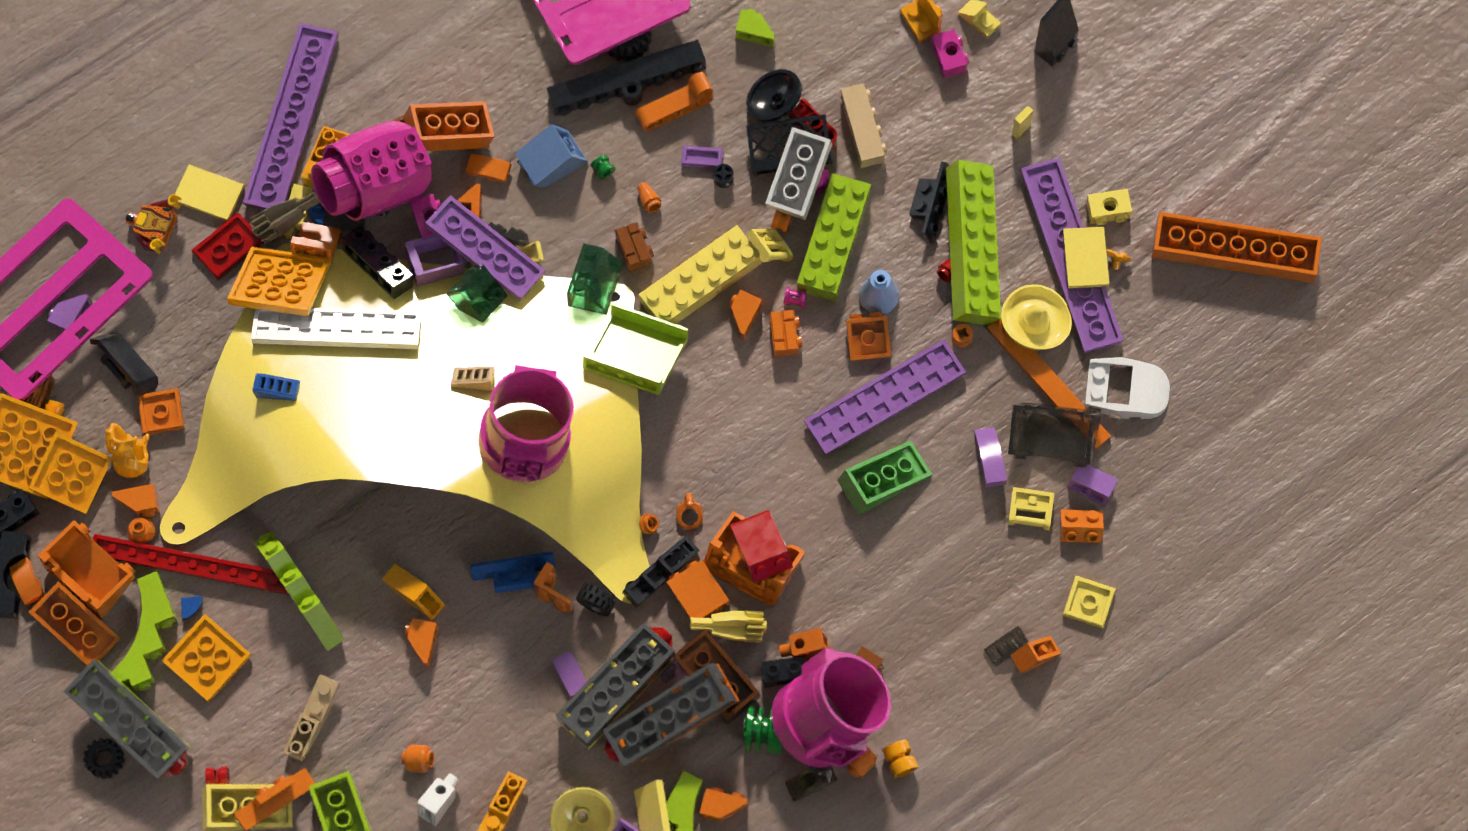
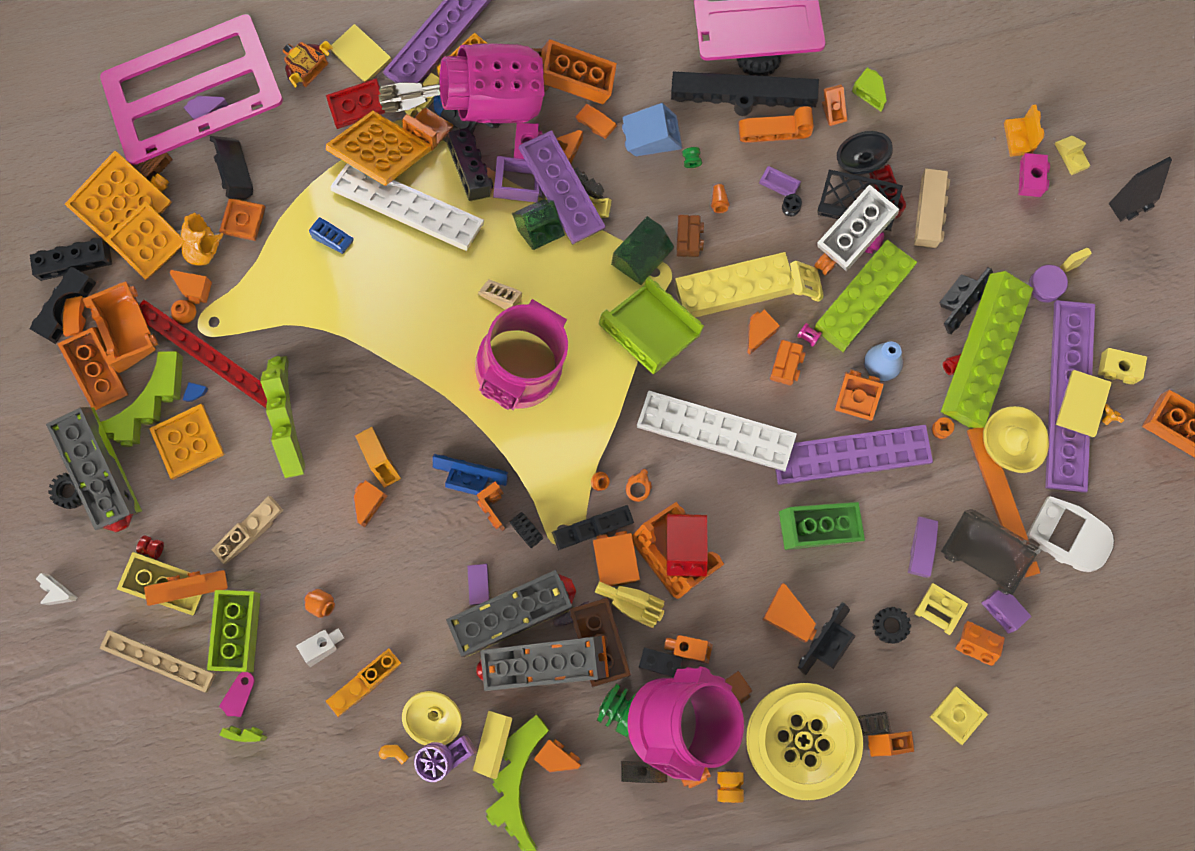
camera: 30 degrees right, 5 degrees up
(724, 59) = (834, 105): none -> orange slope
(742, 427) = (717, 430): none -> white plate
(890, 575) = (789, 615): none -> orange slope
(939, 584) = (831, 642): none -> black bracket
(980, 660) = (839, 727): none -> light yellow wheel
(990, 531) = (902, 619): none -> black tyre
(1006, 154) = (1048, 283): none -> medium lavender head

